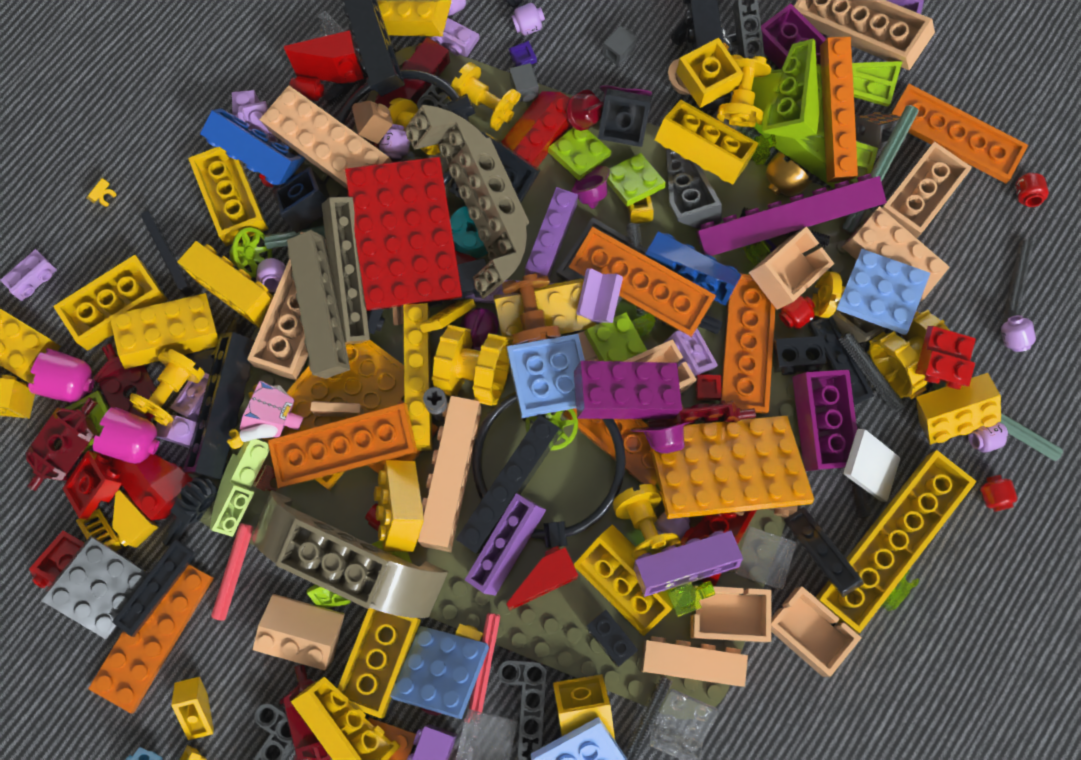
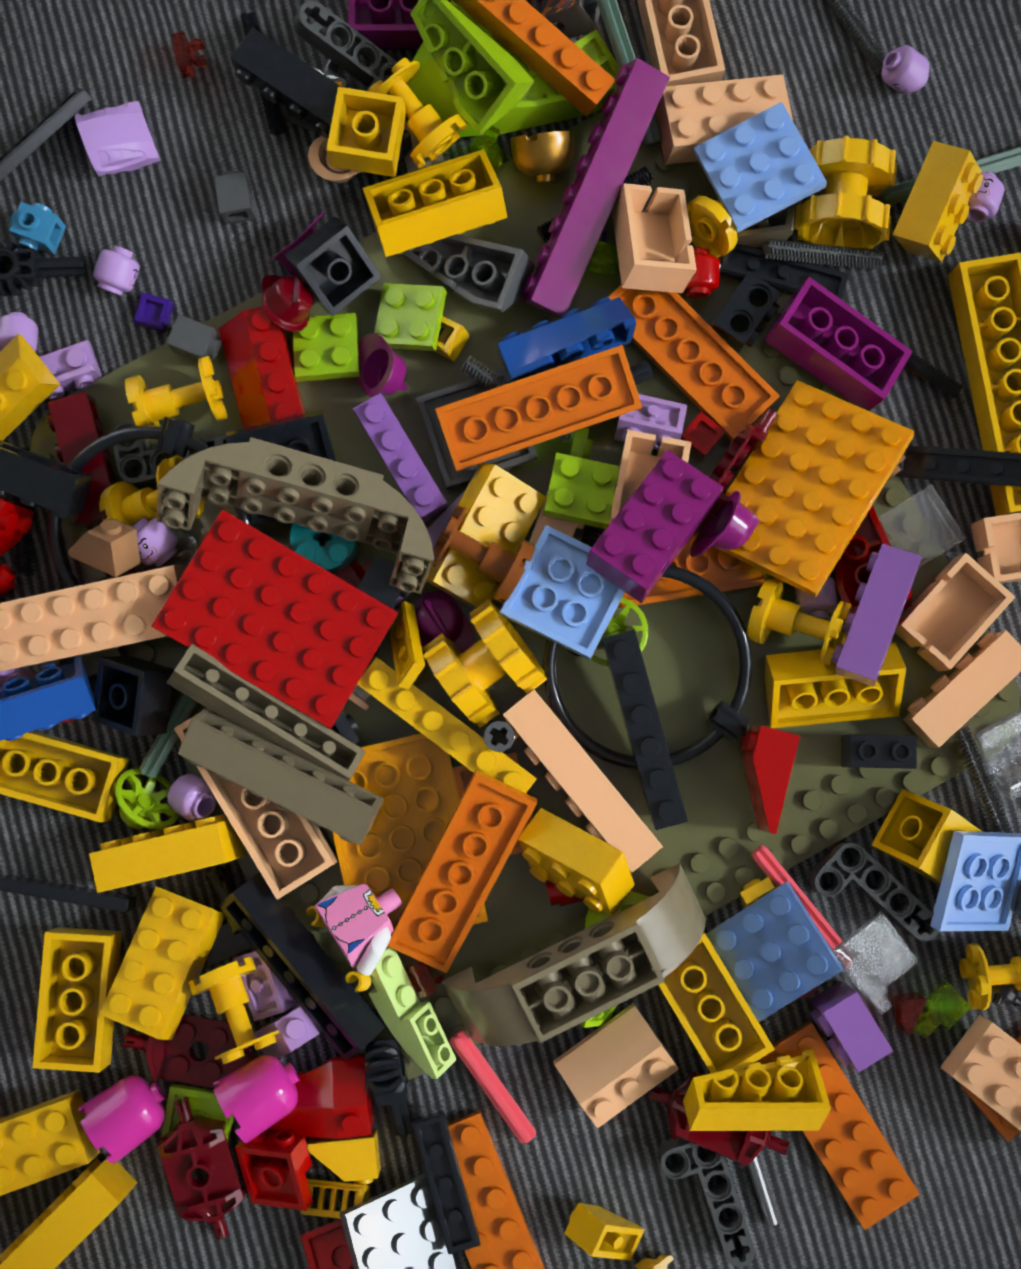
camera: 50 degrees left, 10 degrees up
(336, 409) = (412, 845): light nougat tile -> none
(505, 545) = (701, 782): medium lavender brick -> none
(599, 296) = (522, 466): lavender panel -> none
(686, 598) = (910, 644): clear neon green plate -> none
(872, 465) = (919, 340): white tile -> none
(946, 358) = (889, 169): red plate -> none

